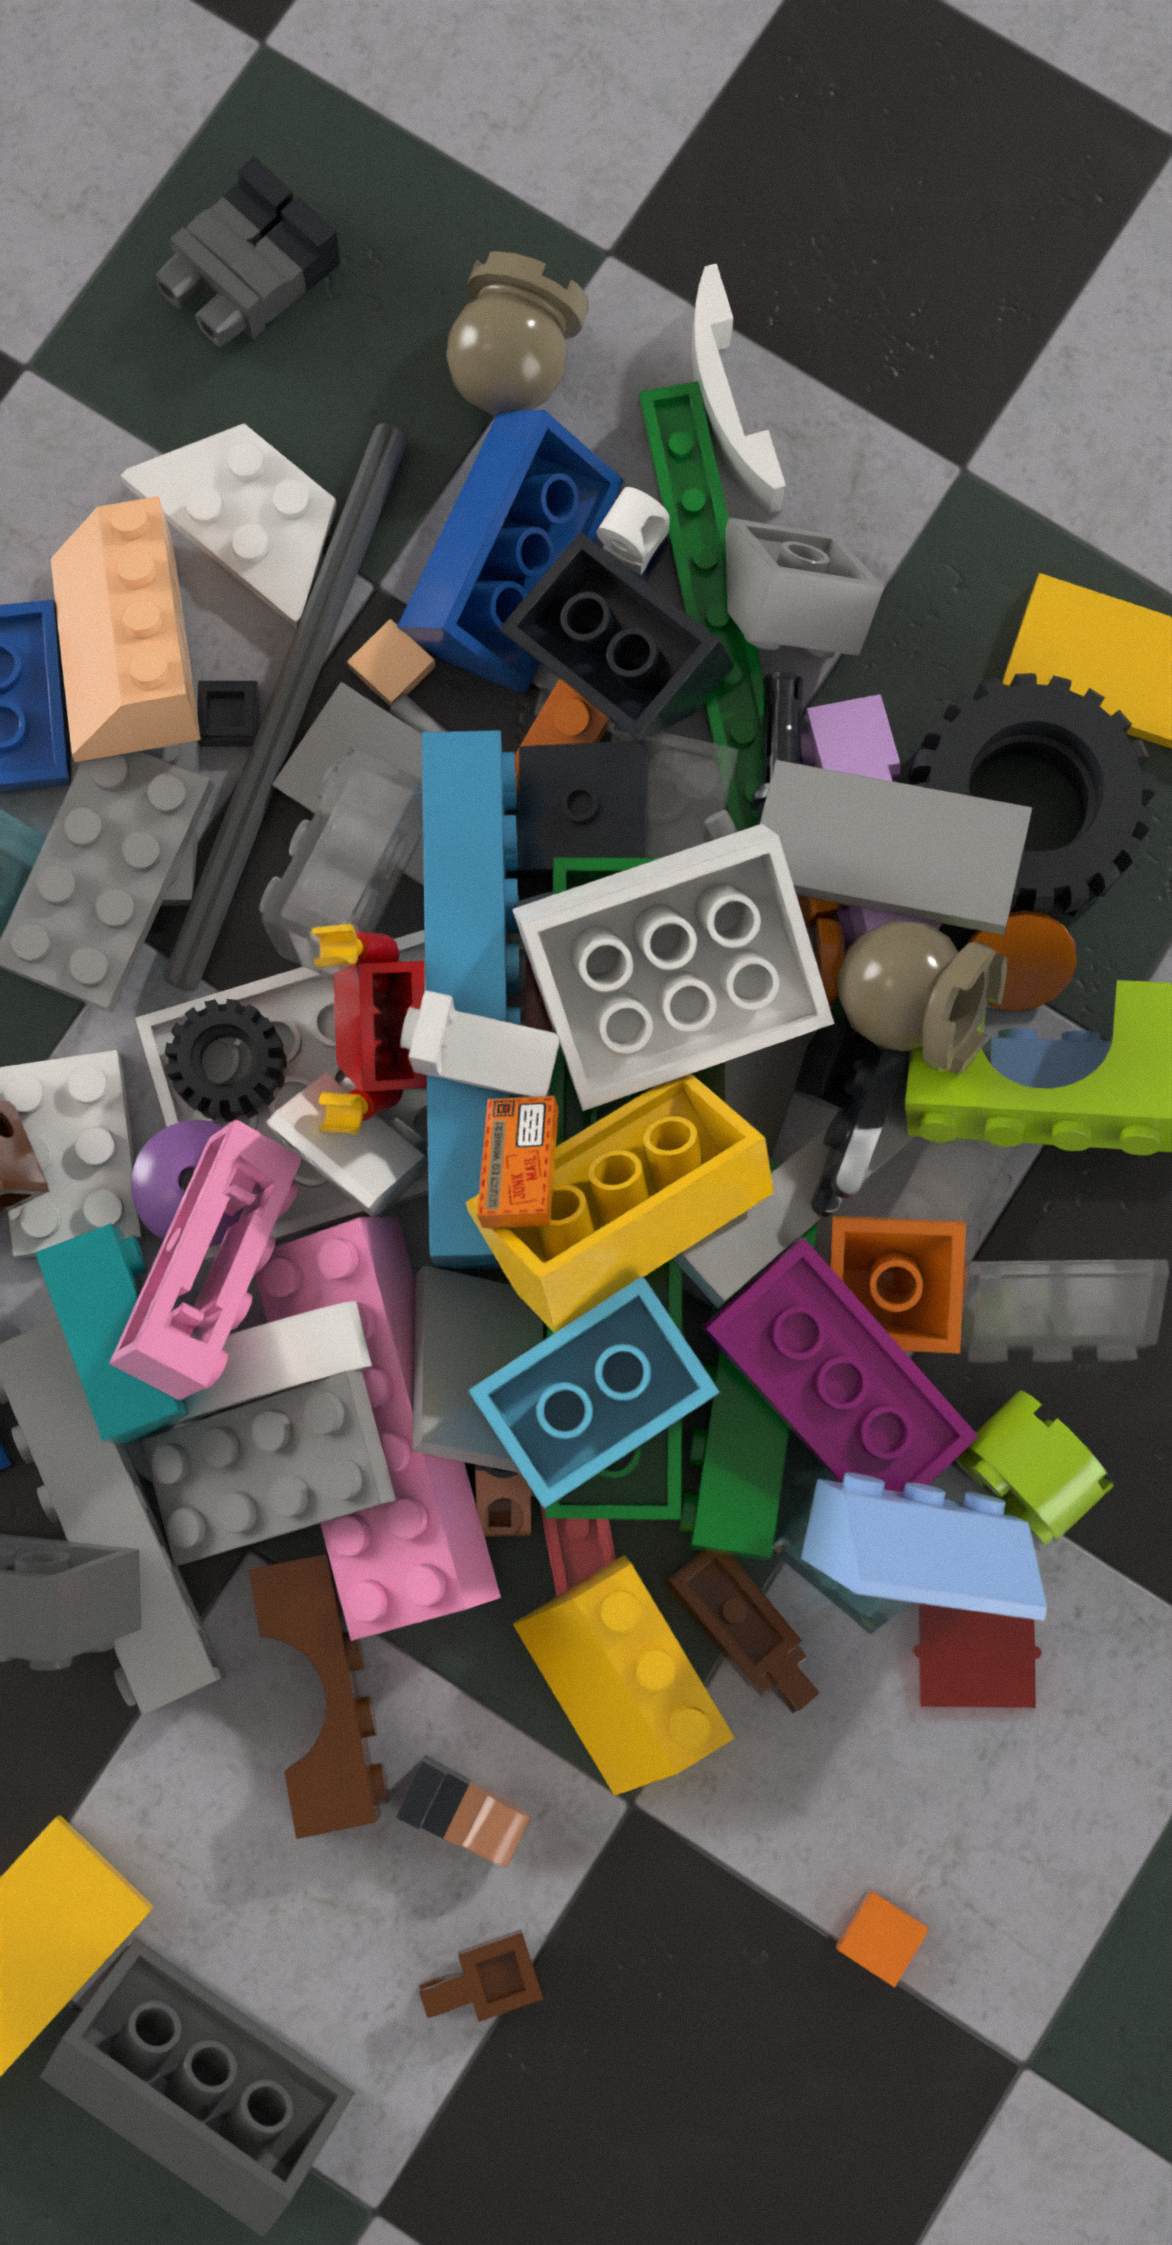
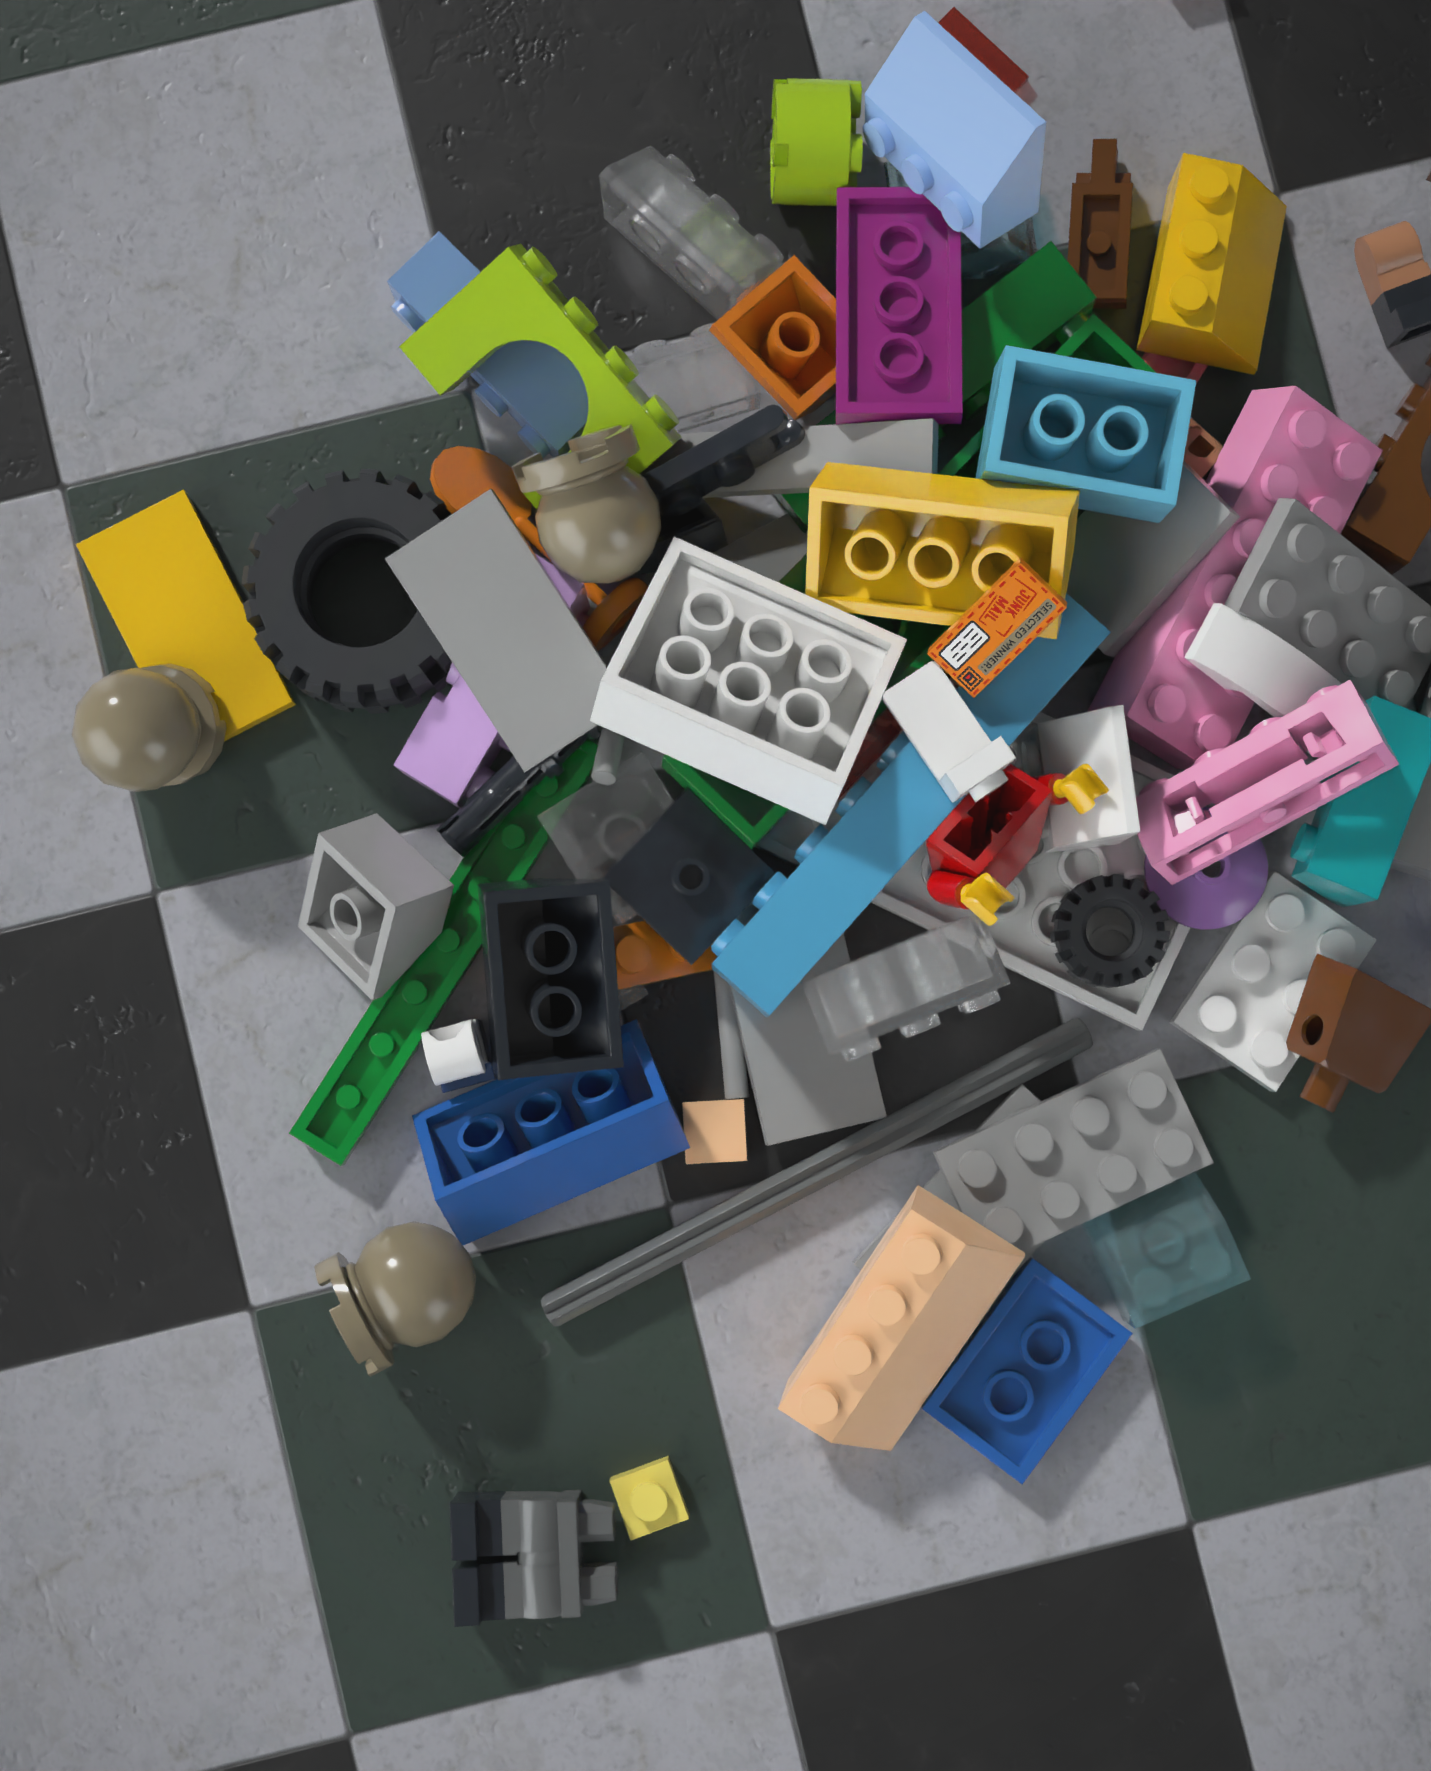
camera: 135 degrees left, 5 degrees up
(197, 373) = (649, 1498): none -> light yellow plate
(228, 713) = (866, 1205): black tile -> none
(245, 512) = (714, 1352): white wing -> none
(749, 457) = (309, 1033): white slope -> none
(1083, 556) = (148, 727): none -> dark tan tile

